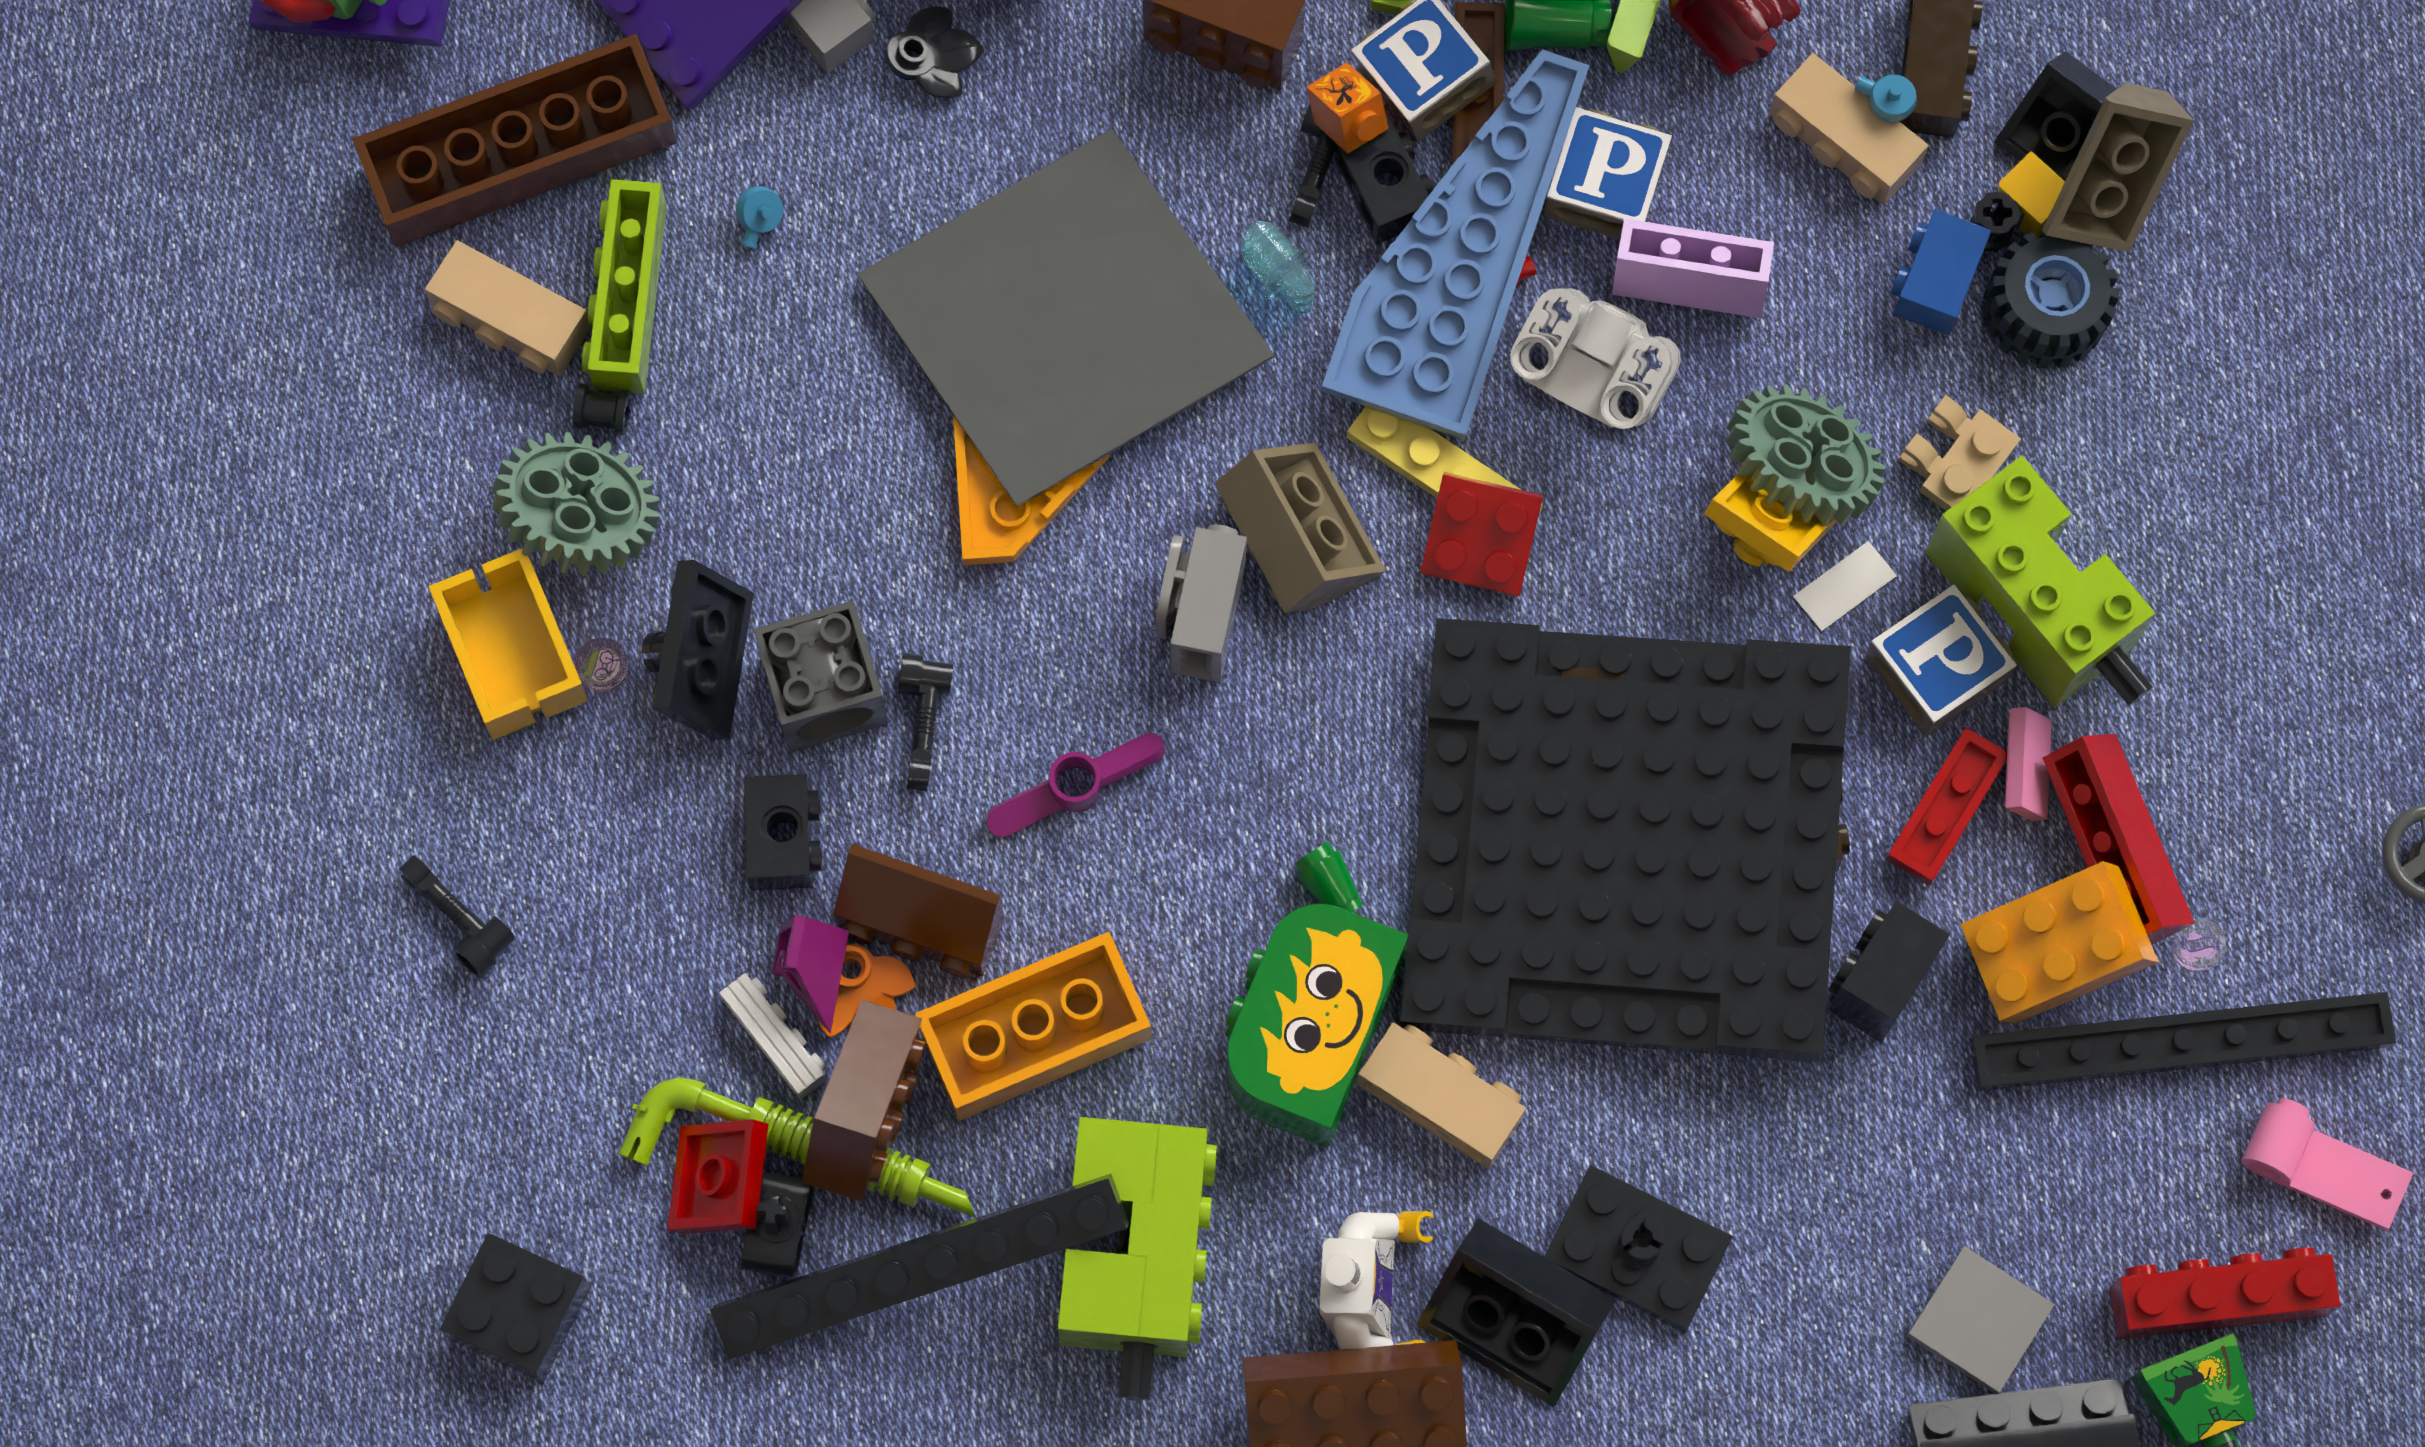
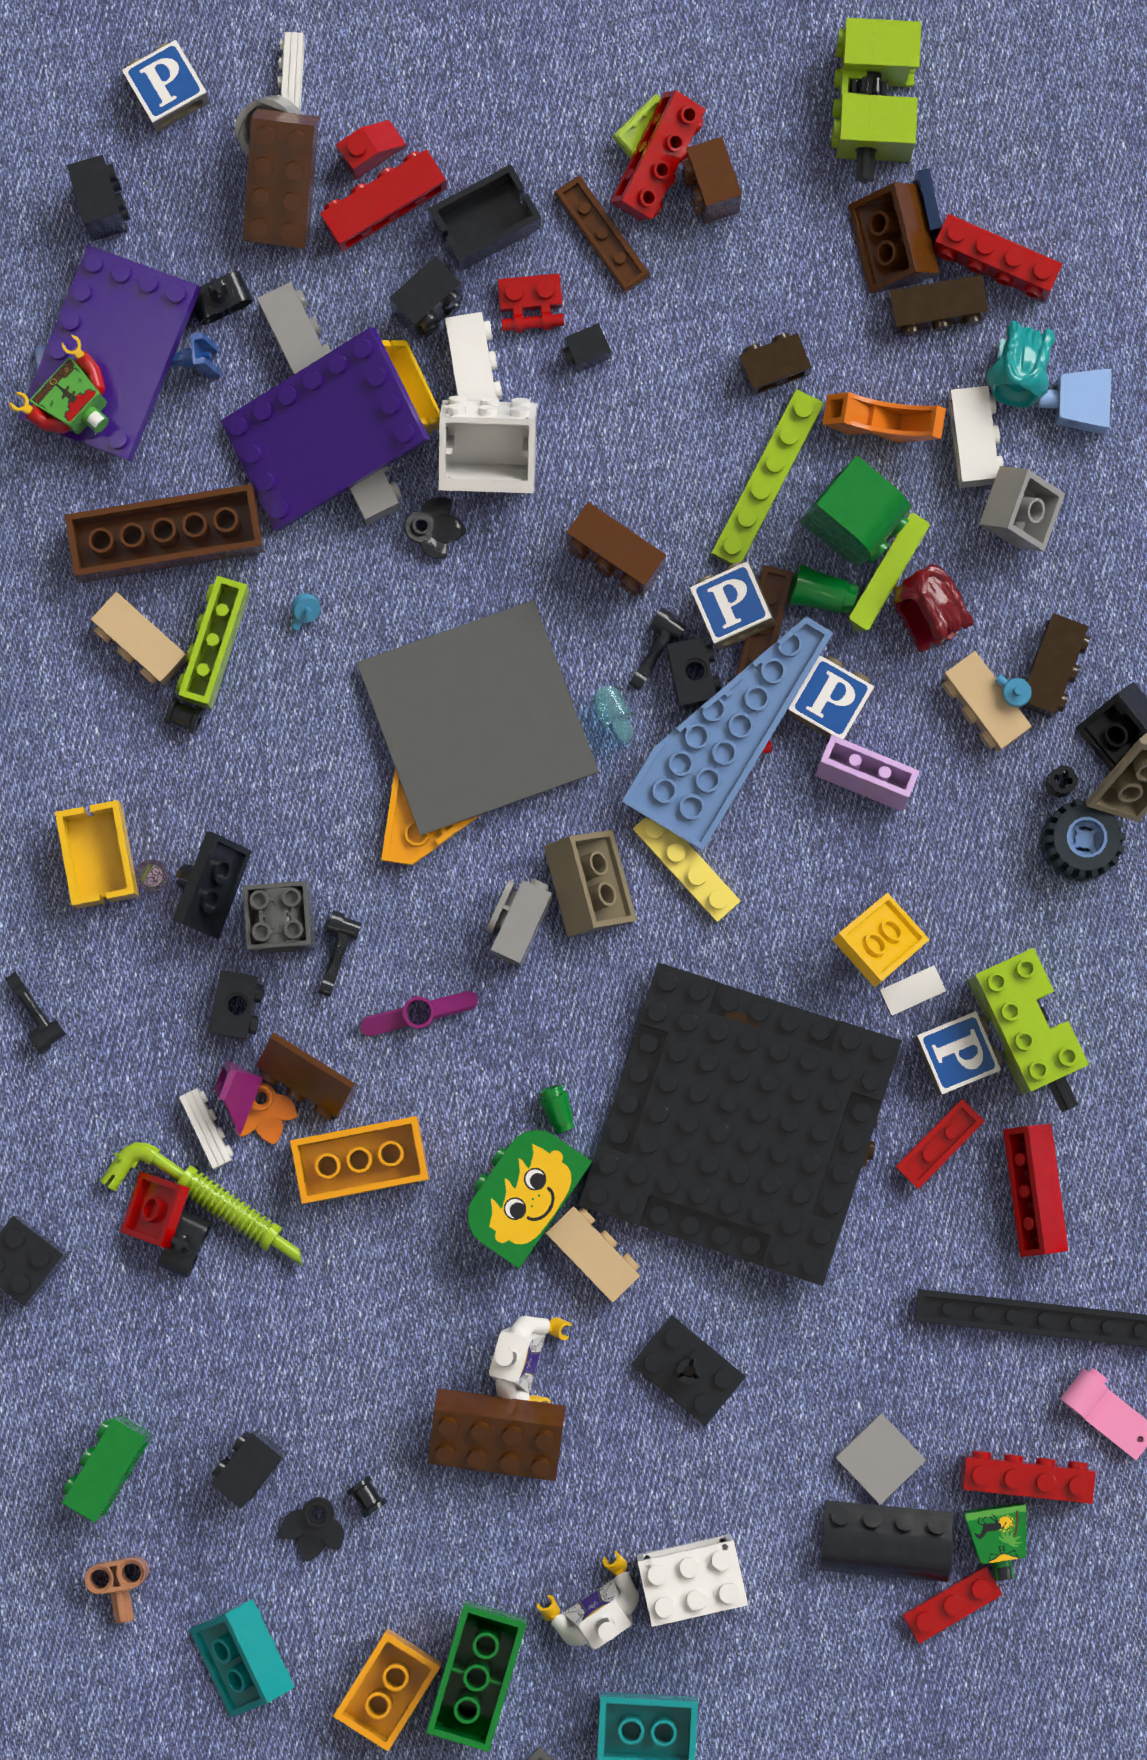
camera: 15 degrees right, 10 degrees up
(575, 503) = (154, 775): sand green gear -> none
(862, 1101) = (249, 1188): brick -> none
(920, 1266) = (261, 1293): black plate -> none
(1146, 1297) = (392, 1339): lime piece -> none
(1347, 107) = (678, 626): orange brick -> none
(1481, 534) = (698, 913): red plate -> none
(1516, 1312) = (607, 1393): black slope -> none
(1594, 357) = (795, 818): white piece -> none
(1805, 454) = (906, 909): sand green gear -> none
(1893, 961) = (875, 1241): black brick -> none
(1941, 271) = (1019, 807): blue brick -> none
(1971, 461) = (1007, 931): tan plate -> none
(2026, 772) = (991, 1137): bright pink tile -> none
(2034, 189) = (1090, 769): yellow panel -> none
(2059, 943) = (982, 1248): light orange brick -> none
(2198, 946) = (1070, 1262): clear tile -> none

